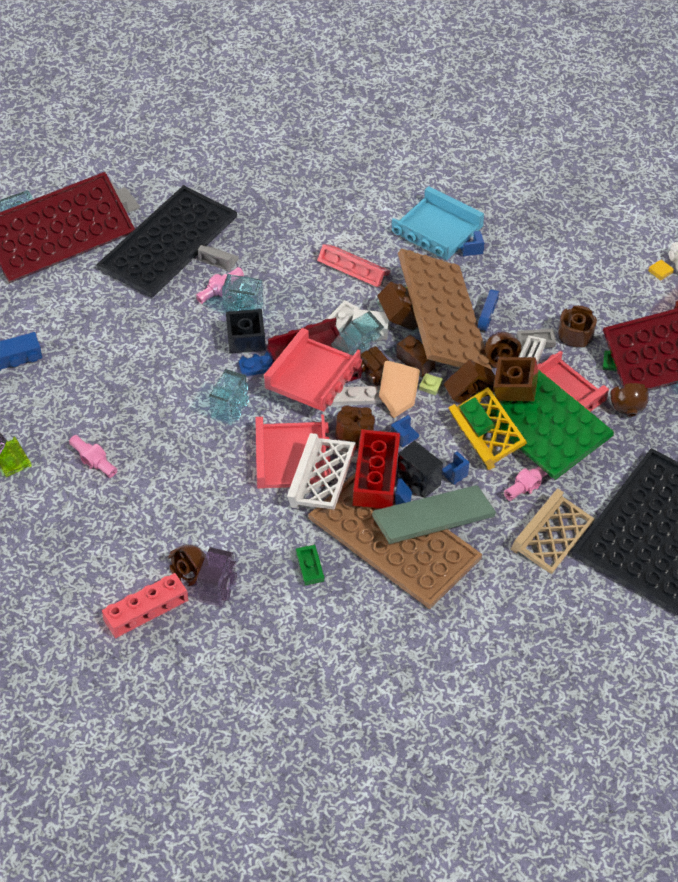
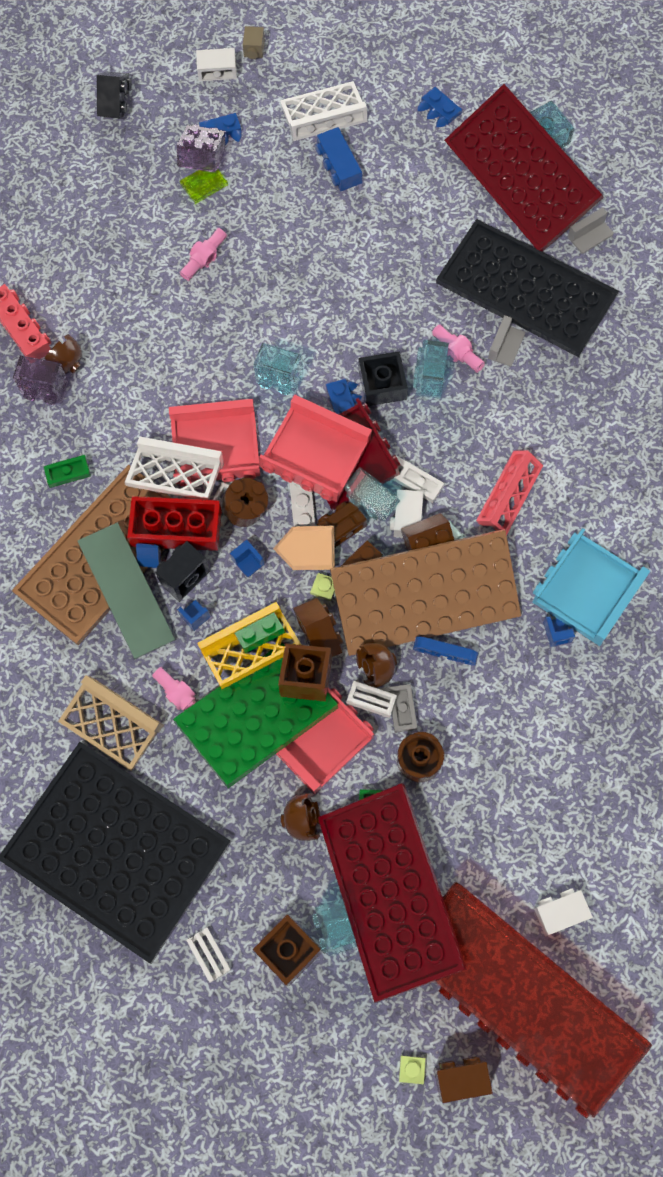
camera: 90 degrees right, 20 degrees up
(661, 269) = (543, 876): yellow tile -> none

